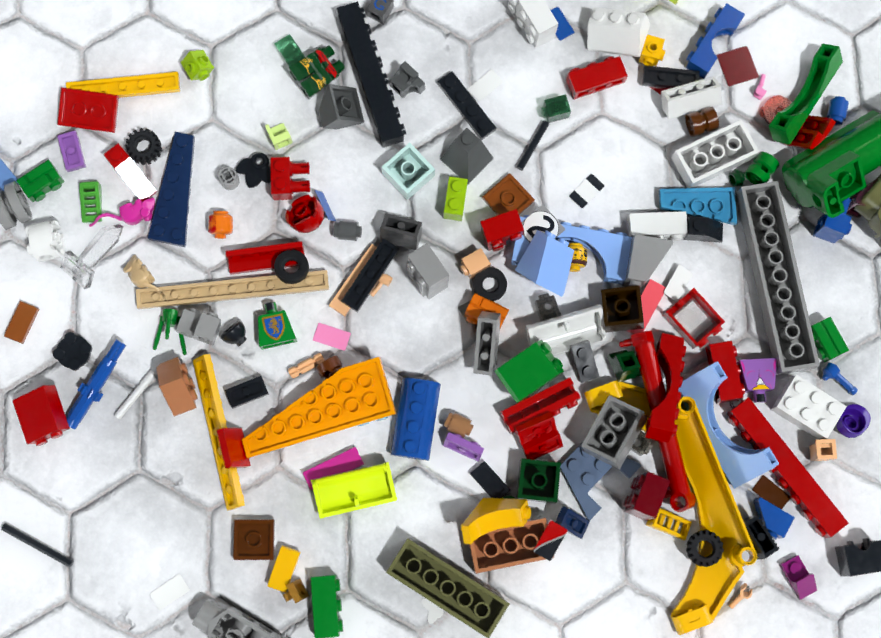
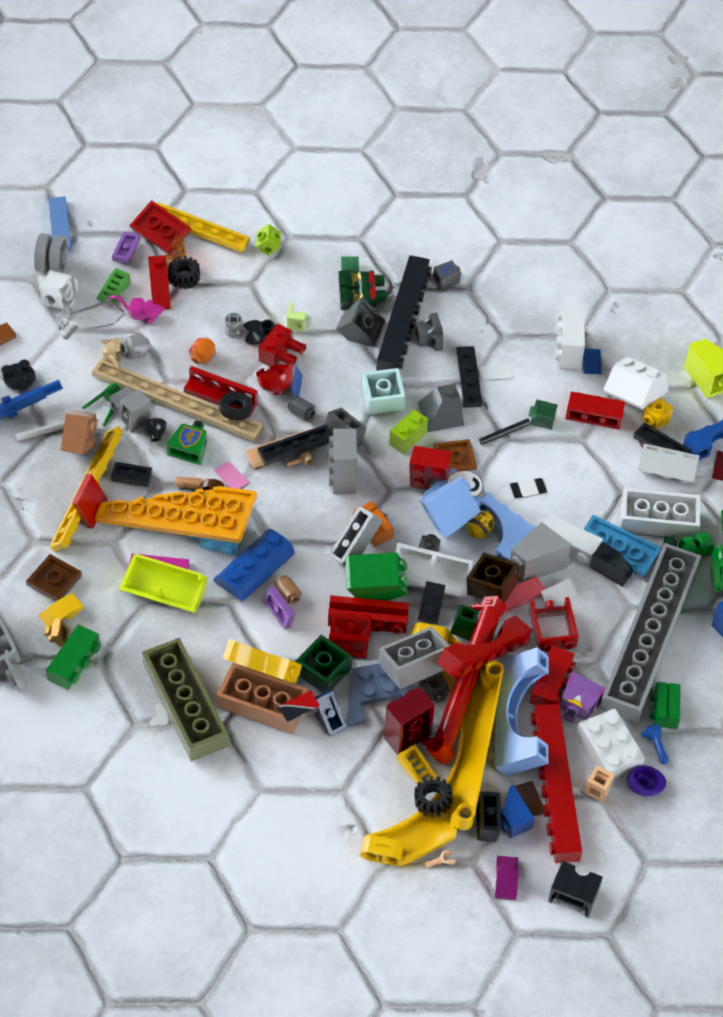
camera: 35 degrees right, 25 degrees down
(40, 181) = (86, 254): green brick -> none
(121, 134) = (178, 245): none -> clear orange bracket
(157, 255) = (136, 346): none -> light grey head
(172, 206) = (175, 322): dark blue wing -> none
(474, 263) = (390, 485): light nougat brick -> none
(489, 481) = (282, 644): black tile -> none
(490, 272) = (397, 498): black tyre -> none
(704, 121) = (665, 483): reddish brown wheel -> none

